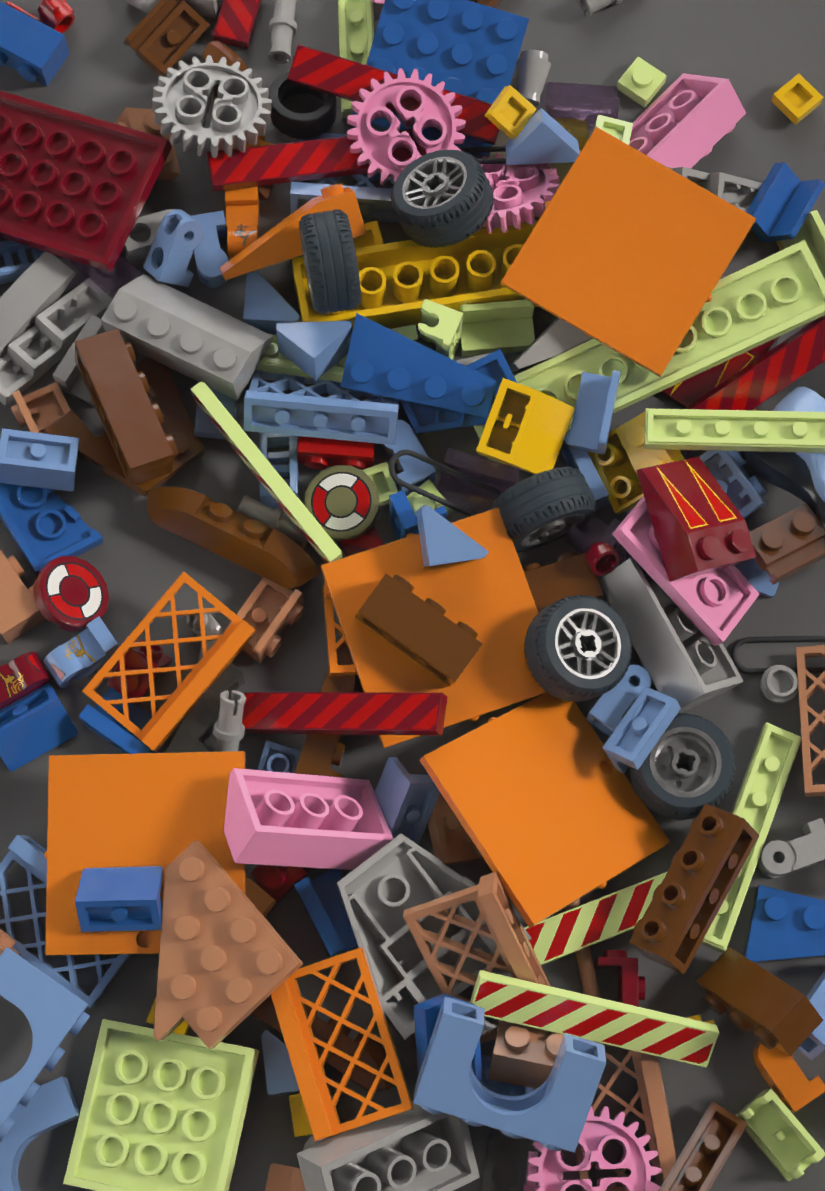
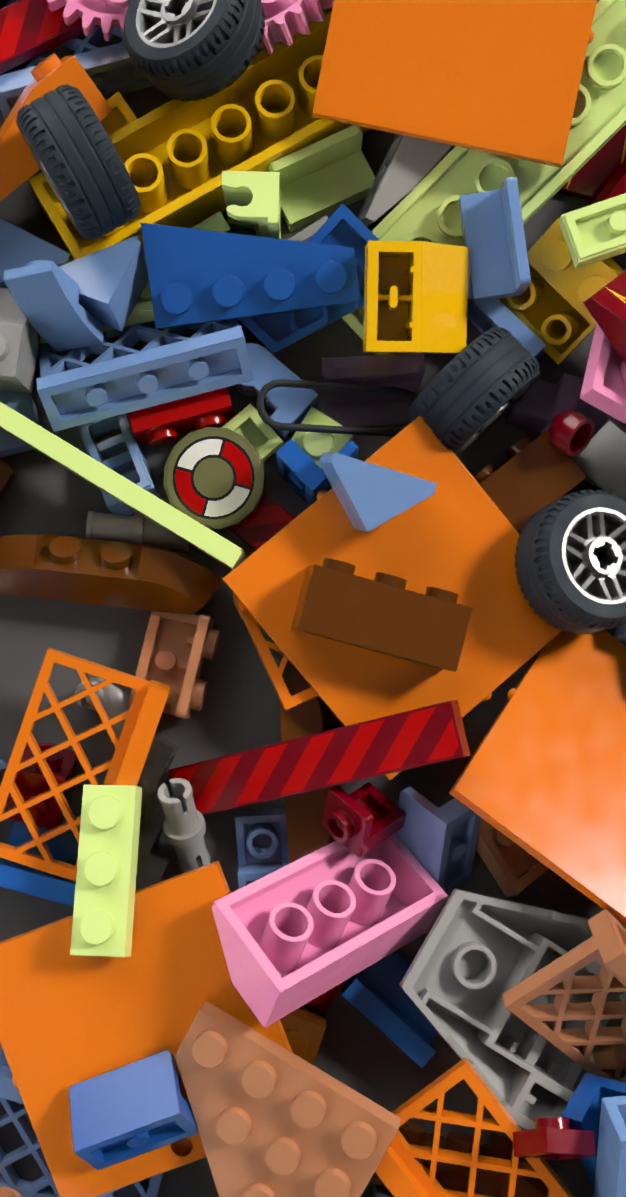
camera: 20 degrees left, 10 degrees up
(167, 729) = (106, 871): none -> yellowish green plate
(275, 347) = (52, 305): none -> medium blue slope
(354, 766) = (361, 817): none -> dark red bracket
(400, 1017) = (554, 1141): none -> dark red plate

